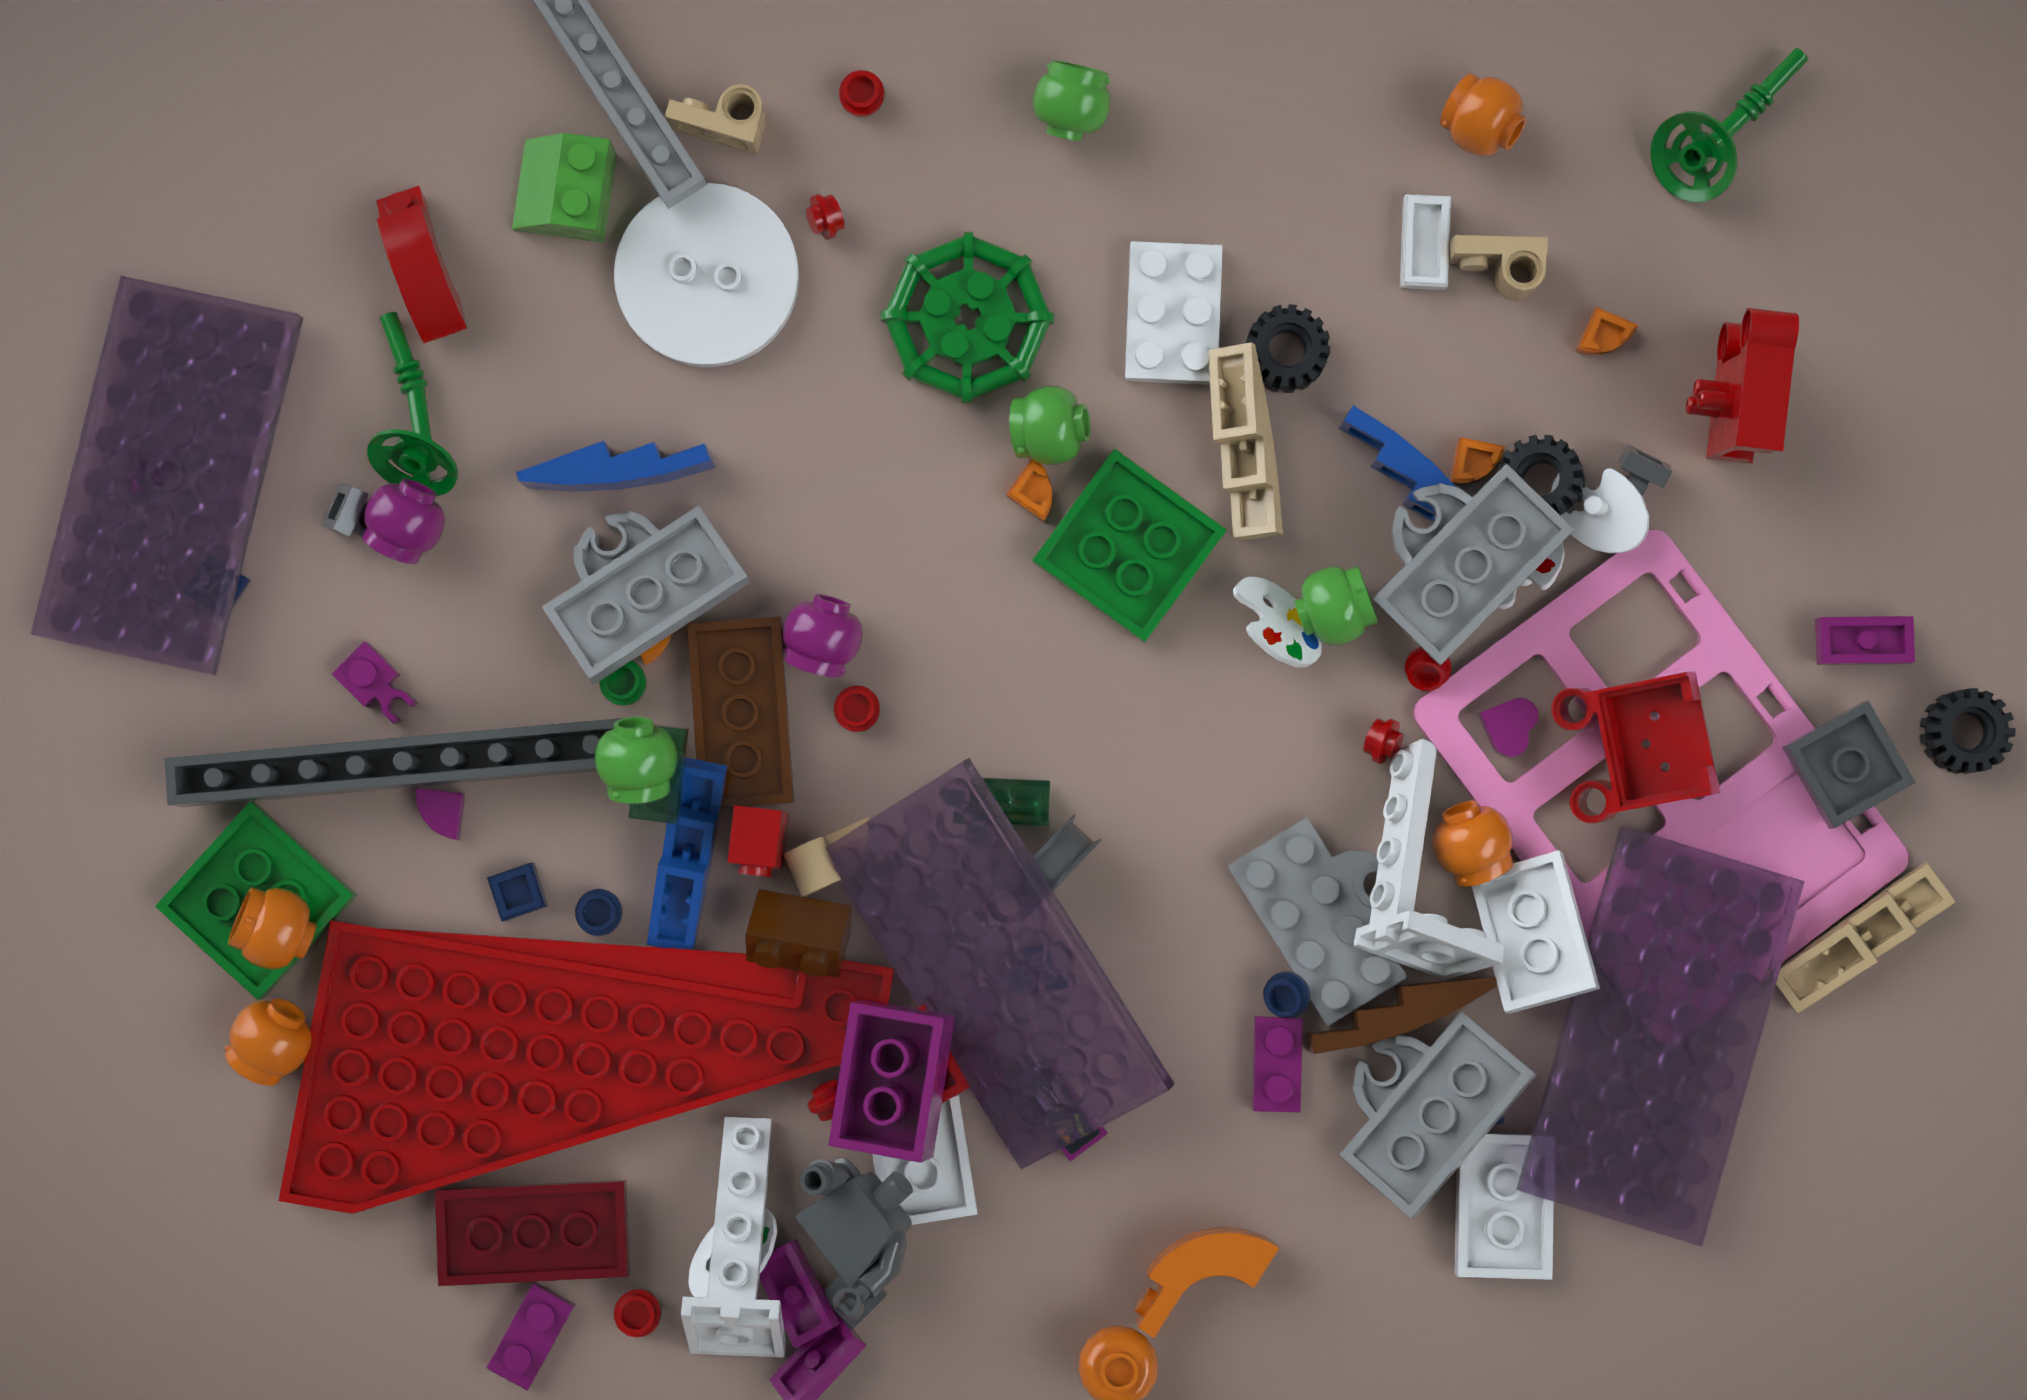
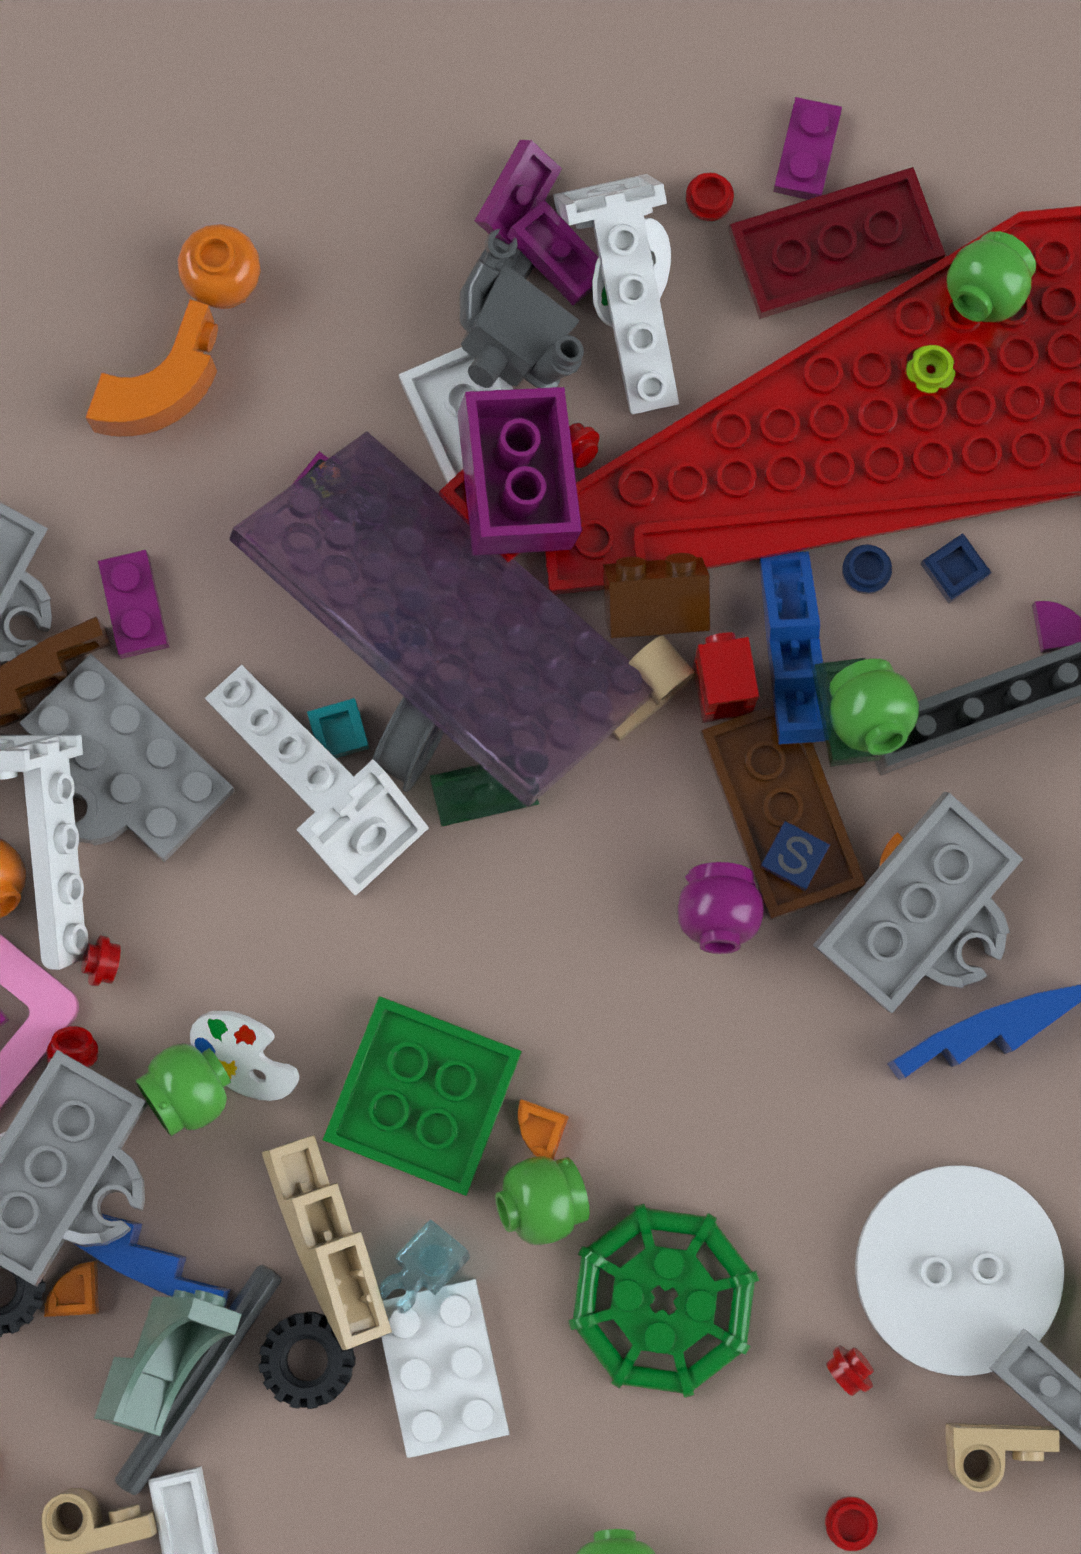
camera: 165 degrees right, 5 degrees down
(401, 1147) = (991, 277): none -> bright green piece
(474, 1089) = (931, 356): none -> lime plate
(624, 685) = (910, 804): green plate -> none
(742, 663) = (794, 856): none -> dark blue tile
(856, 708) = (663, 846): red plate -> none
(1119, 893) = (339, 728): none -> teal plate
(1127, 798) = (357, 819): none -> white bracket
(1161, 402) = (426, 1261): none -> clear light blue plate
(1286, 994) = (140, 673): dark blue plate -> none
(1384, 359) = (153, 1448): none -> dark grey axle
(1396, 390) = (171, 1342): none -> sand green arch

